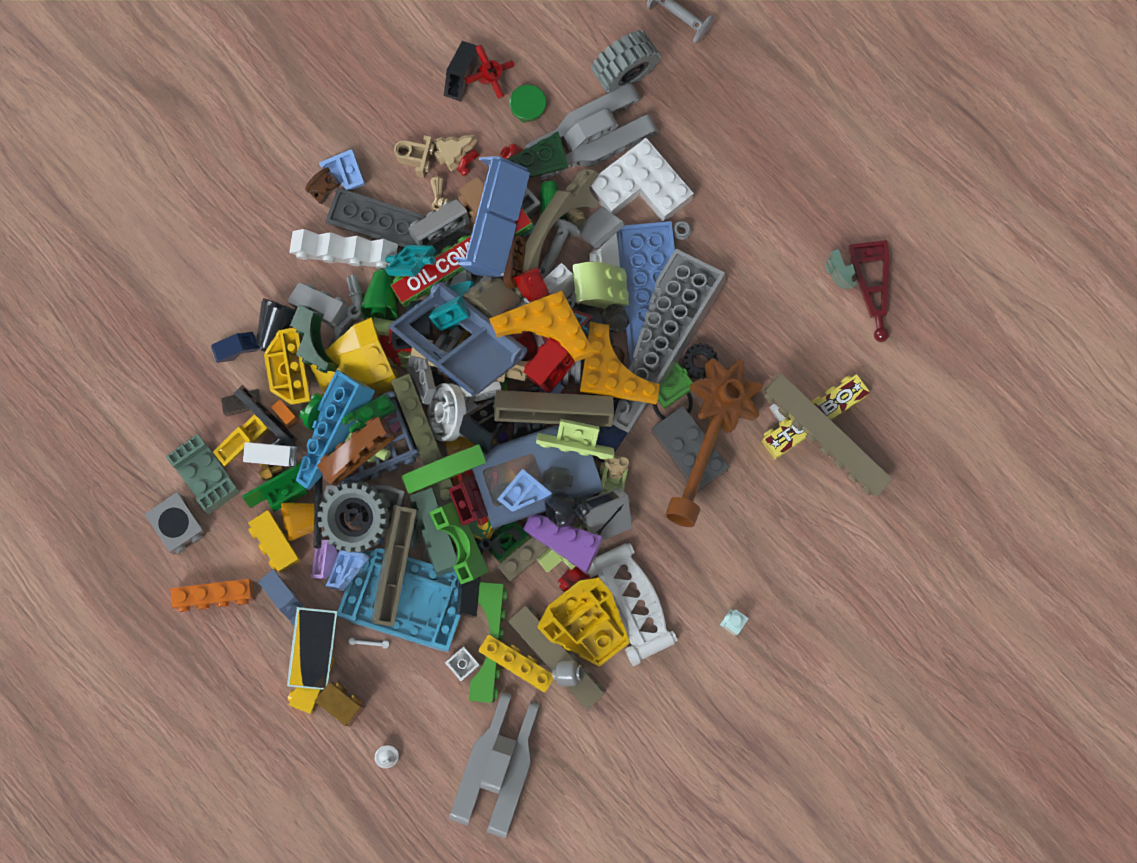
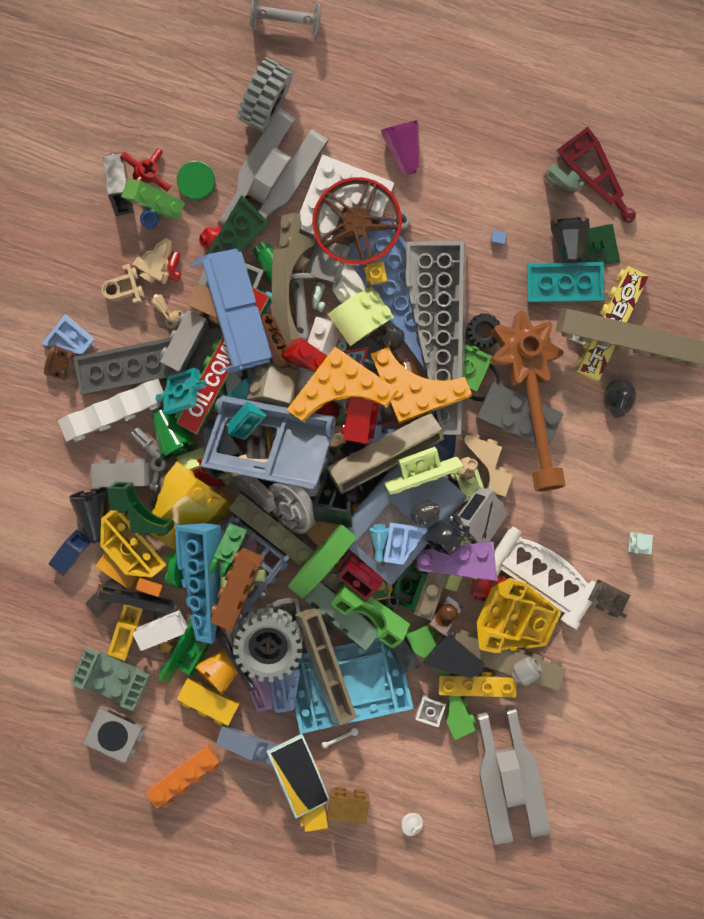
camera: 25 degrees left, 10 degrees up
(261, 381) = (110, 568): none -> light orange slope
(470, 113) = (149, 219): none -> blue plate
(488, 102) = (151, 197): none -> bright green arch
(505, 476) = (379, 536): none -> medium azure cone
(510, 624) = (454, 658): none -> black slope
(524, 586) = (445, 616): none -> reddish brown tile
(571, 254) = (316, 296): none -> light aqua arm
(633, 259) = (375, 273): none -> yellow window
(643, 206) = (357, 221): none -> reddish brown wheel
(643, 468) = (488, 455): none -> tan arch
(679, 654) = (610, 598): none -> clear smoke bracket
(719, 169) = (404, 145): none -> magenta cone
(757, 290) = (498, 237): none -> medium blue piece
(787, 483) = (619, 397): none -> black piece
(794, 359) = (565, 282): none -> teal plate
(820, 323) = (570, 237): none -> black cone
(840, 346) = (601, 245): none -> dark green piece

